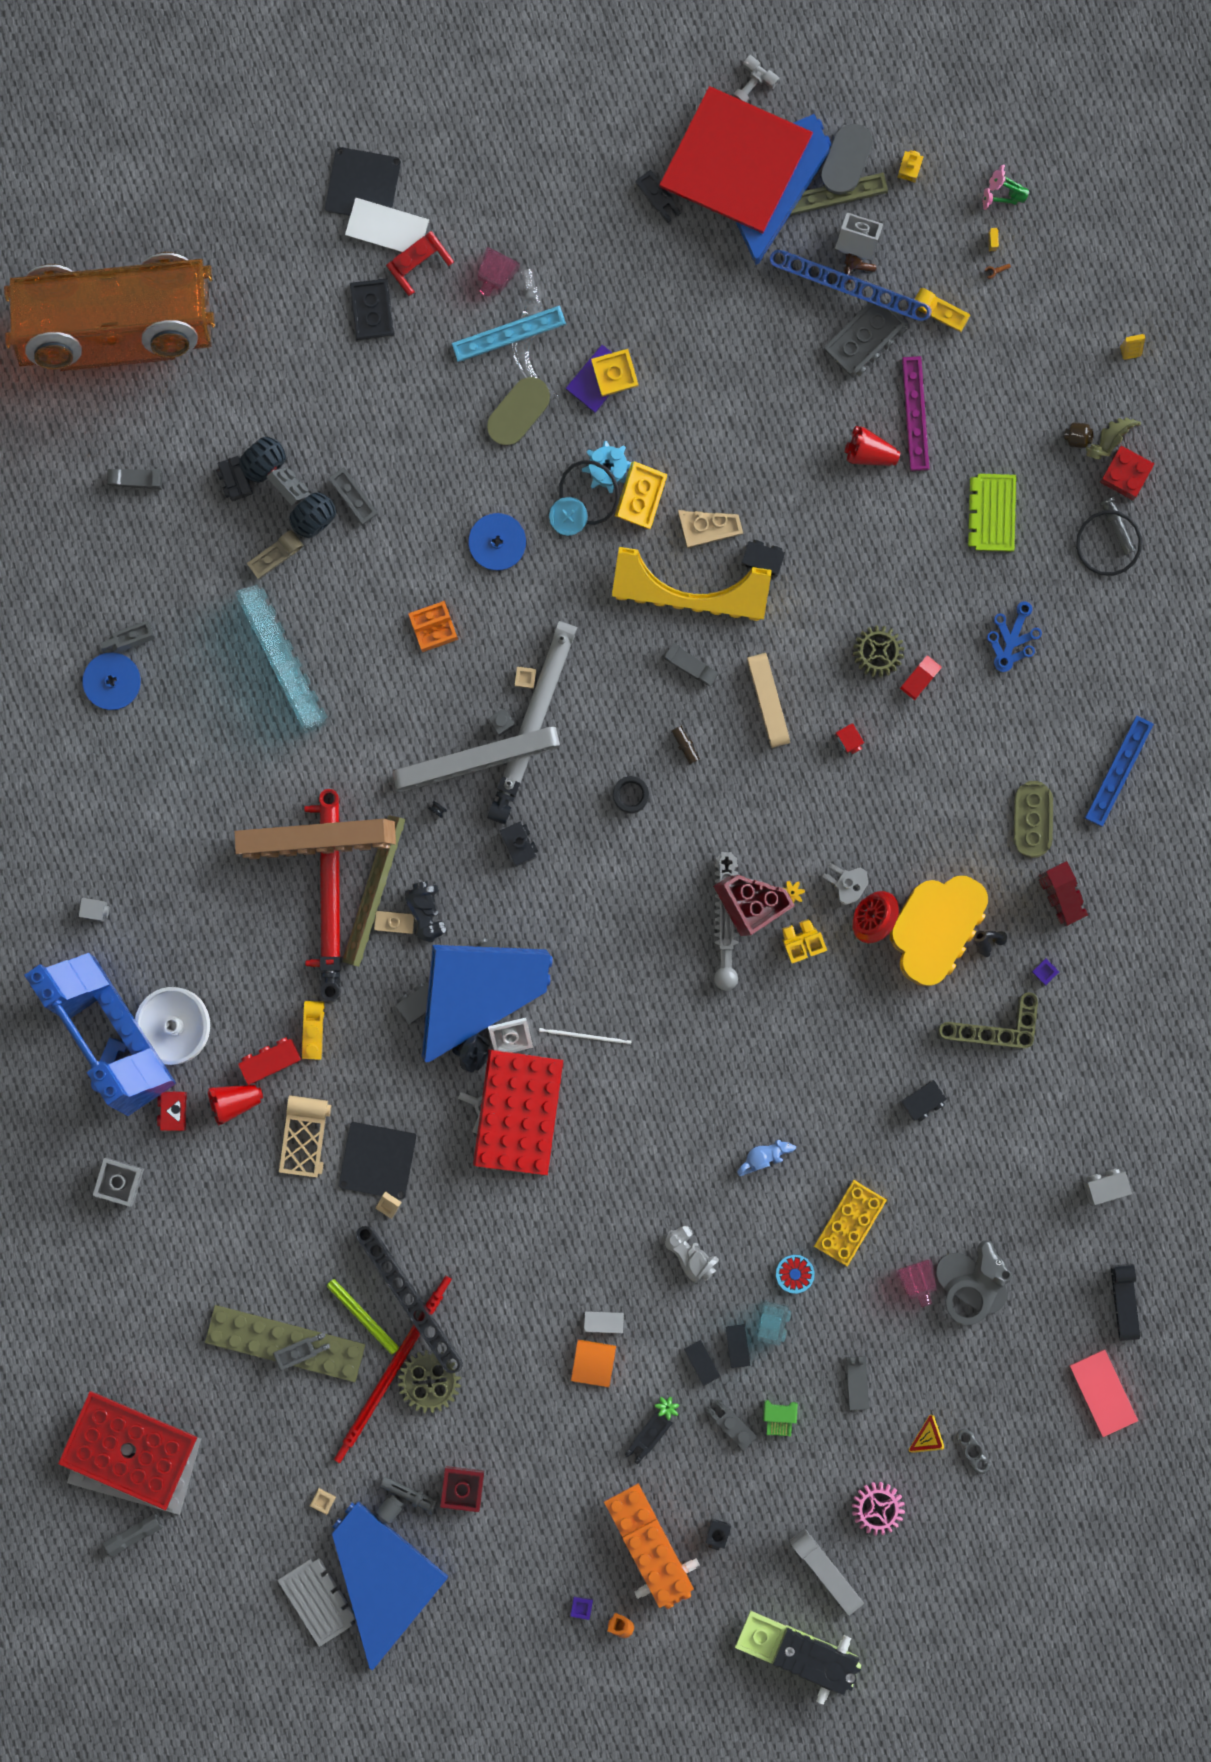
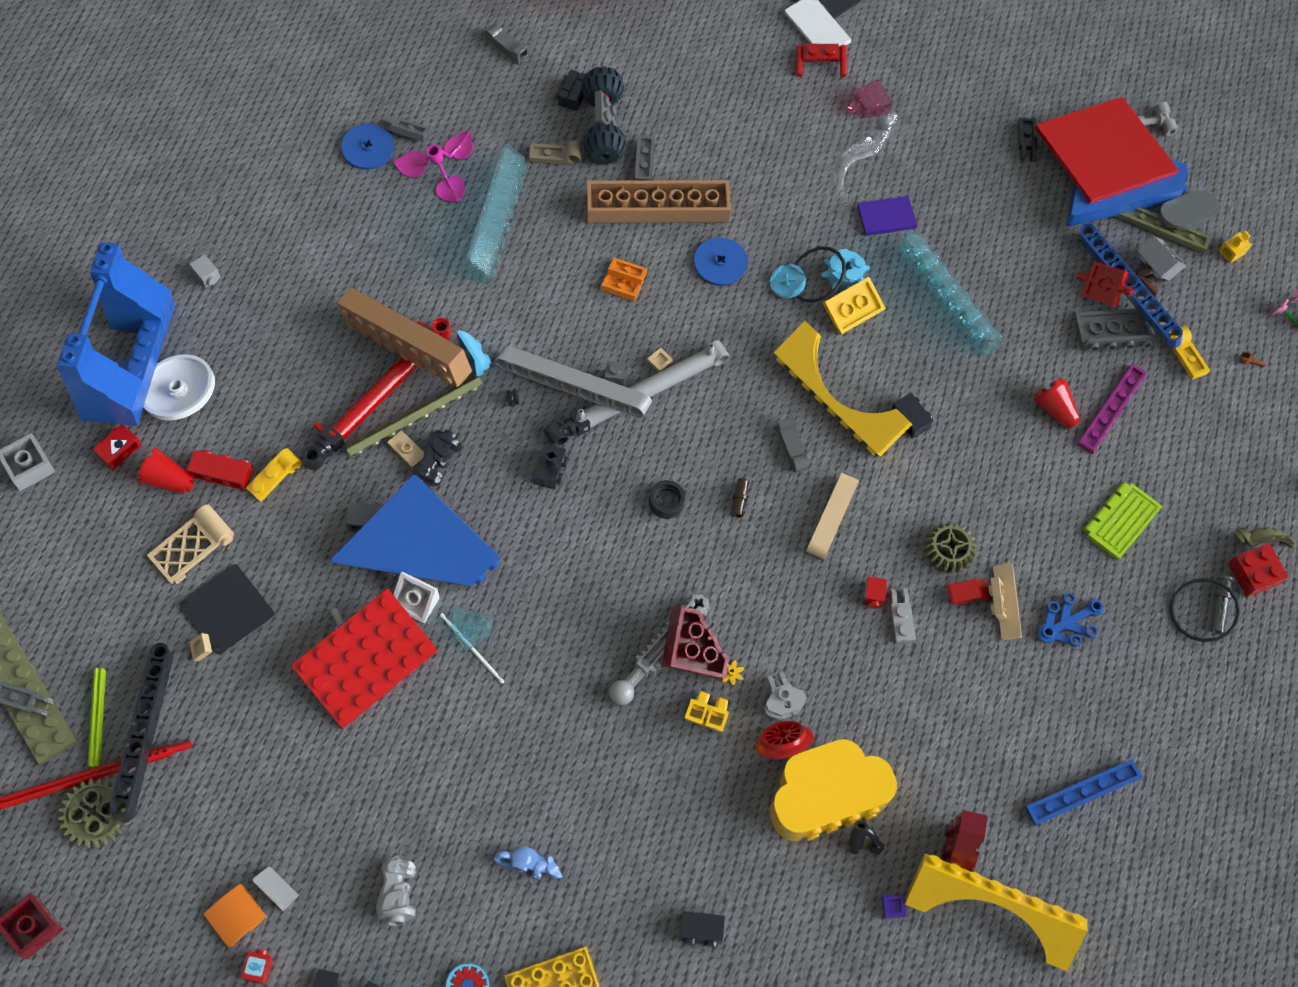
camera: 35 degrees right, 20 degrees down
(163, 663) = (459, 147): none -> dark pink plant
(371, 798) = (477, 359): none -> medium azure slope
(372, 309) = (762, 64): black tile -> none
(402, 531) = (658, 201): none -> medium nougat brick
(473, 1053) = (372, 583): black tile -> none
(509, 333) = (847, 141): medium azure tile -> none
(518, 411) = (810, 192): olive tile -> none
(572, 1022) = (471, 627): none -> clear light blue plate
(614, 372) = (902, 215): yellow plate -> none
(641, 1382) = (257, 966): none -> red brick
(708, 527) = (882, 363): tan wing -> none
(709, 416) = (950, 294): none -> clear light blue slope
(829, 302) = (1104, 283): none -> red plate
(885, 741) = (902, 617): none -> light grey hinge
(952, 662) = (1005, 601): none -> tan bracket
(993, 239) = (1266, 336): yellow tile -> none
(996, 1032) = (812, 921): olive beam -> none
(1033, 819) = (979, 774): olive tile -> none
(1067, 930) = (945, 882): none -> yellow arch
(1079, 435) = (1236, 515): dark brown head -> none

